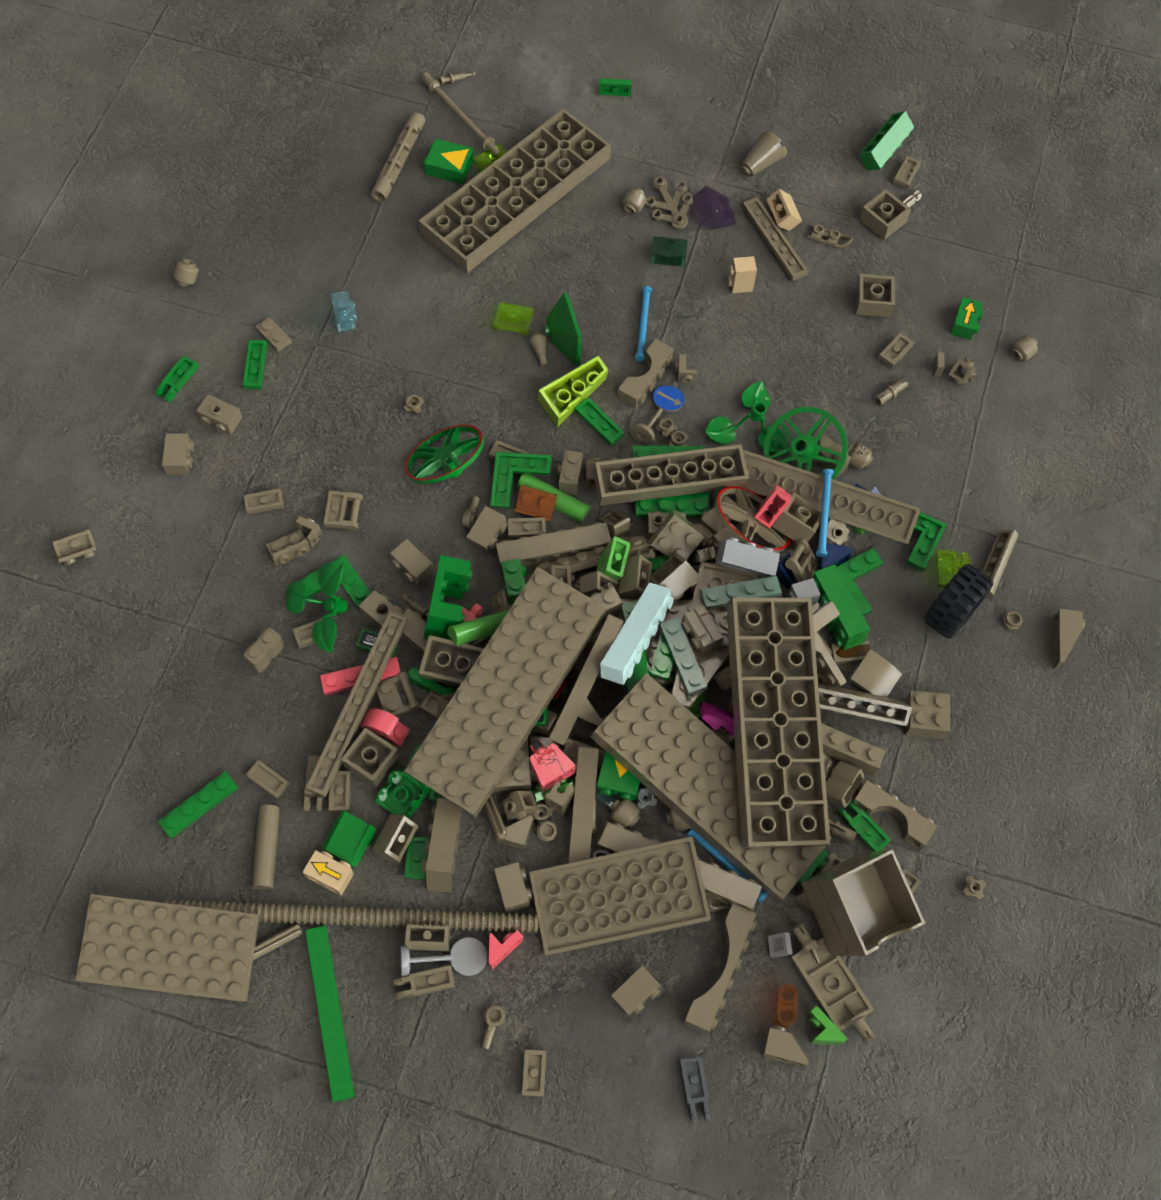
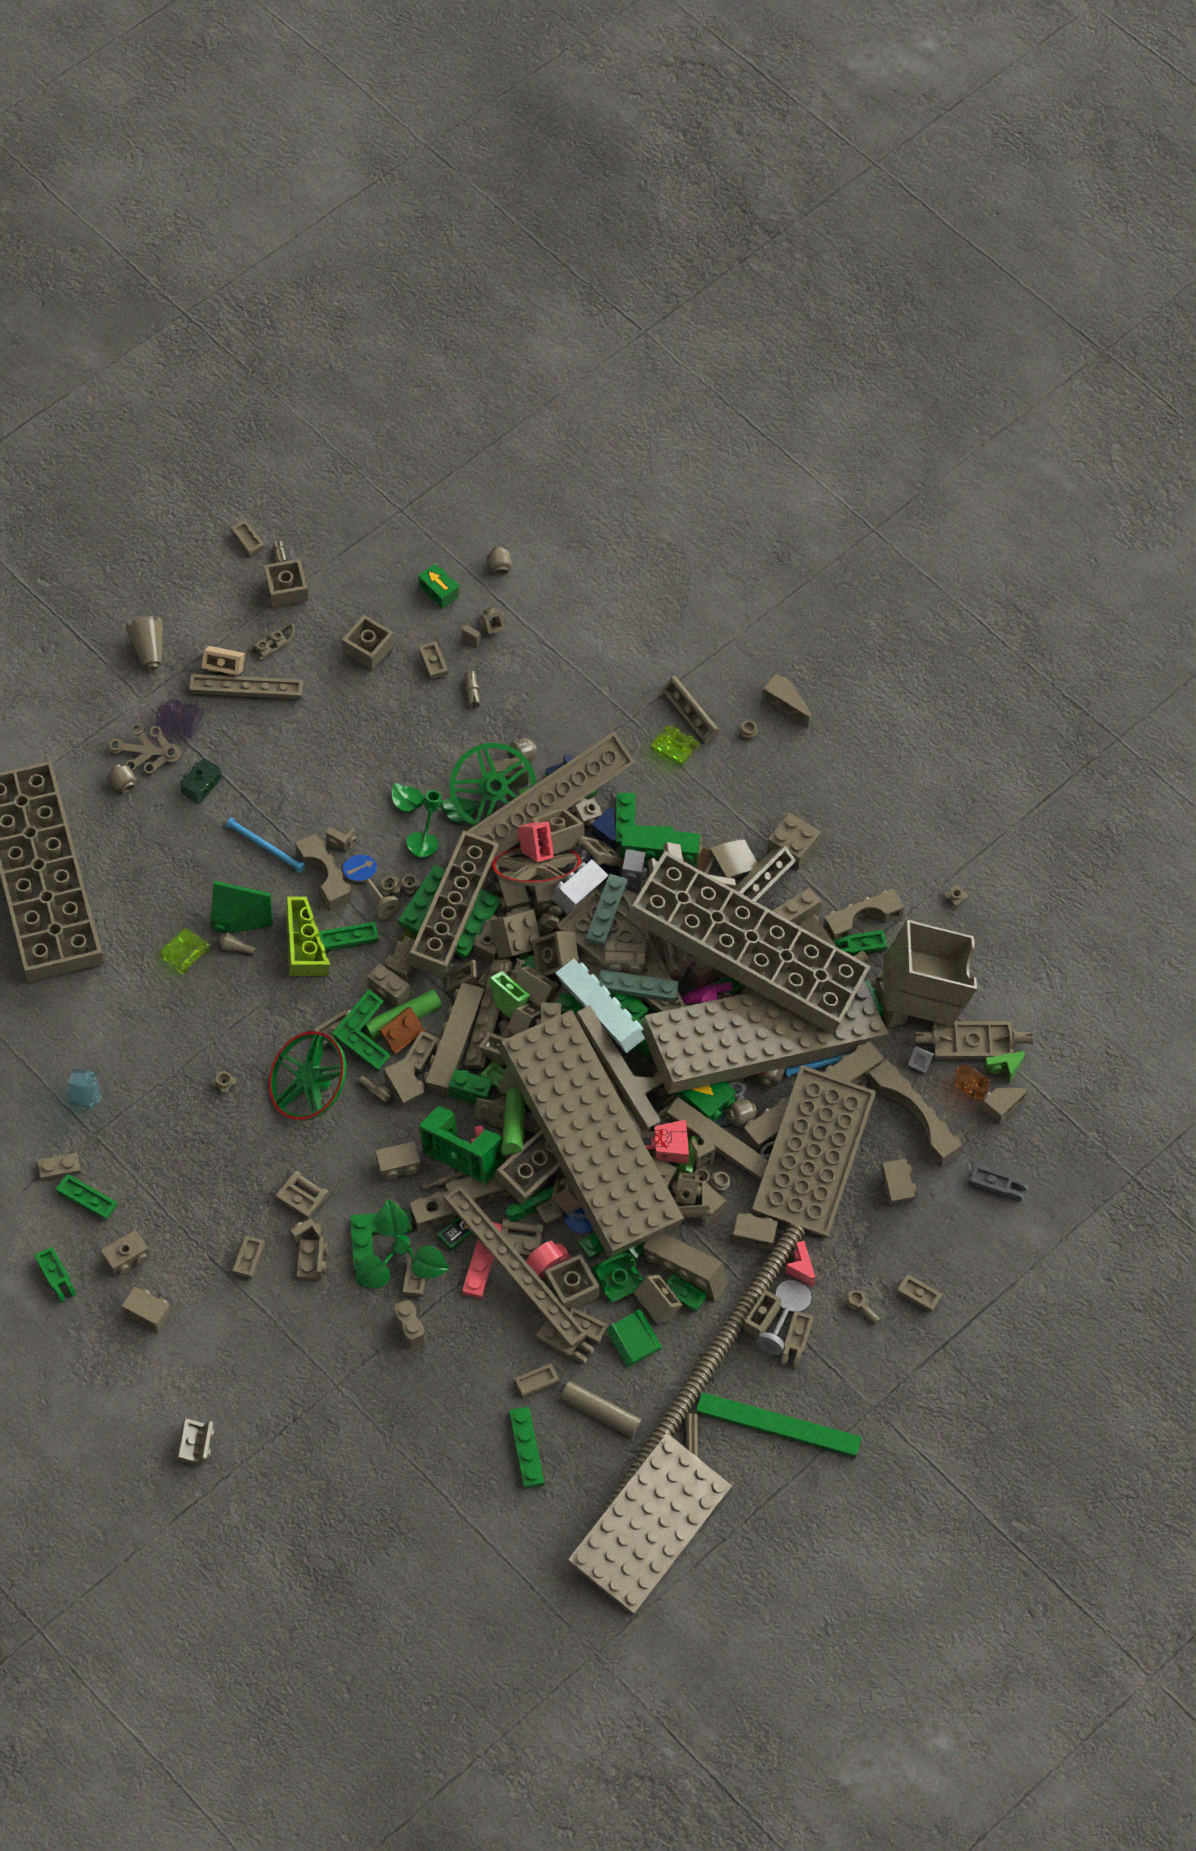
camera: 60 degrees left, 5 degrees down
(328, 872) = (656, 1367): tan brick -> none
(742, 274) = (274, 733): tan brick -> none
(827, 473) = (566, 805): dark azure bar -> none
(886, 141) = (204, 533): brick -> none
(931, 532) = (638, 750): green plate -> none
(958, 601) = (715, 755): black tyre -> none

